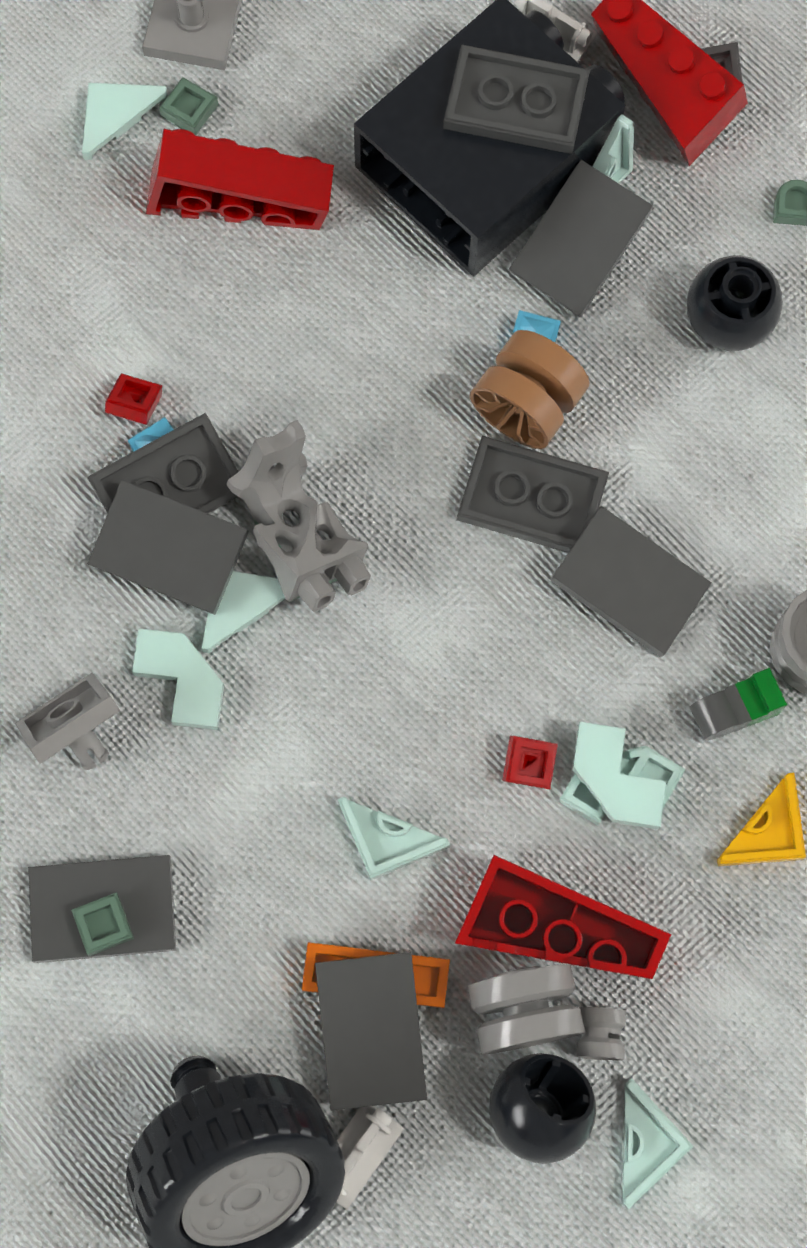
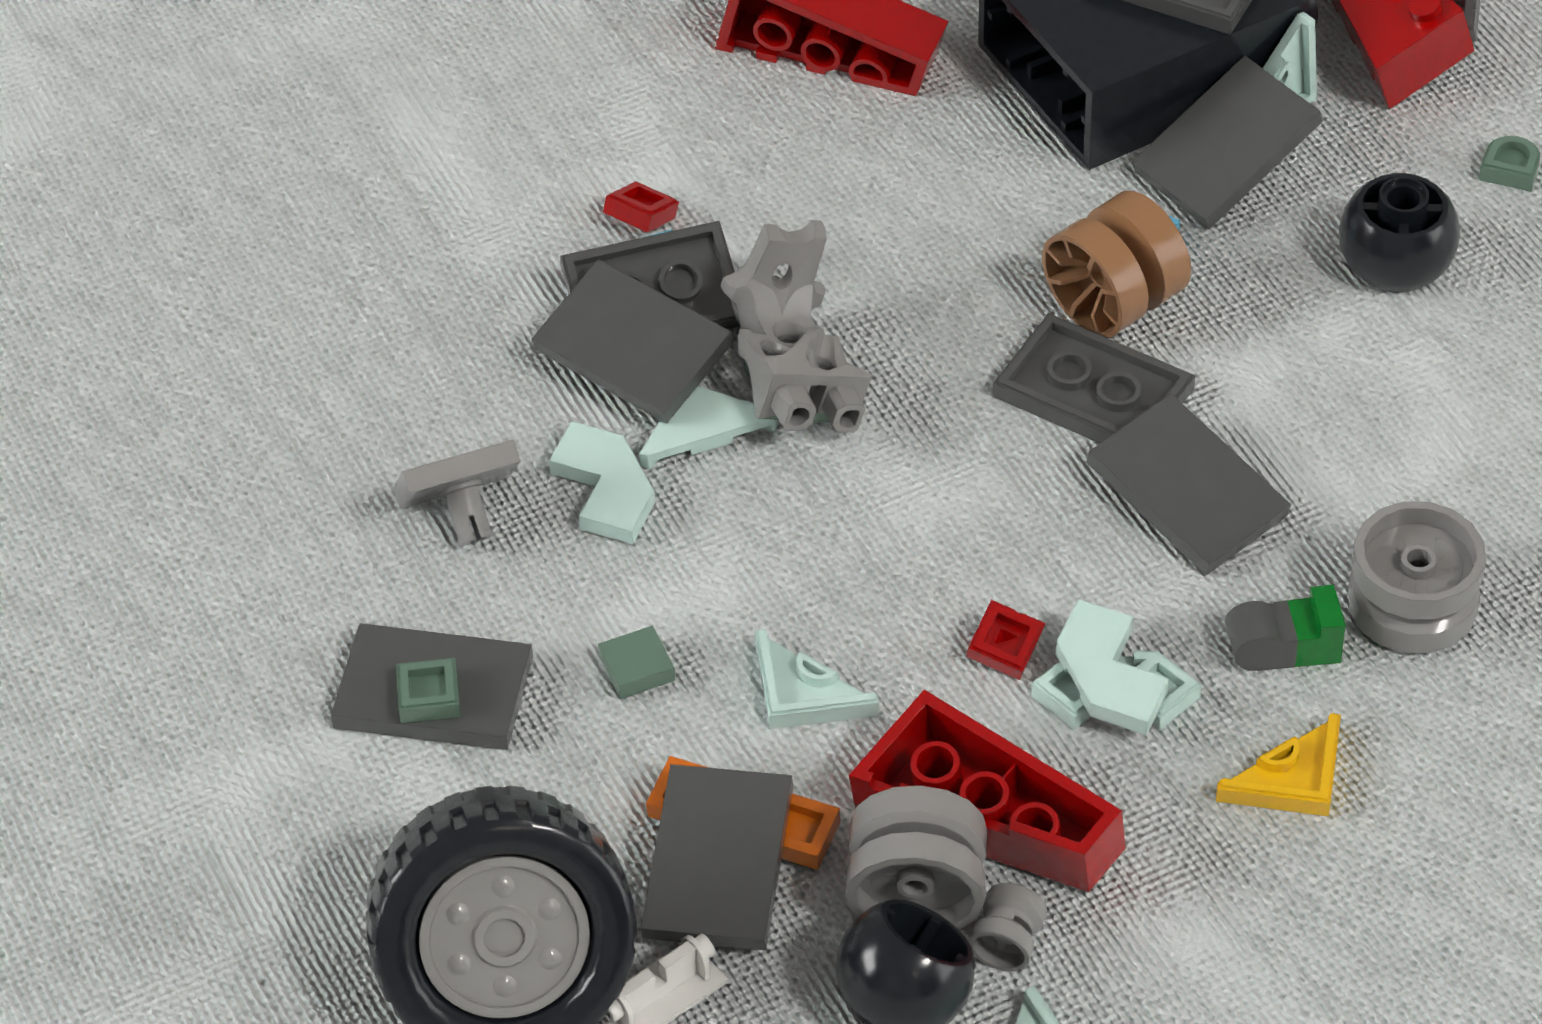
camera: 20 degrees right, 25 degrees down
(253, 847) = (636, 662): none -> sand green tile

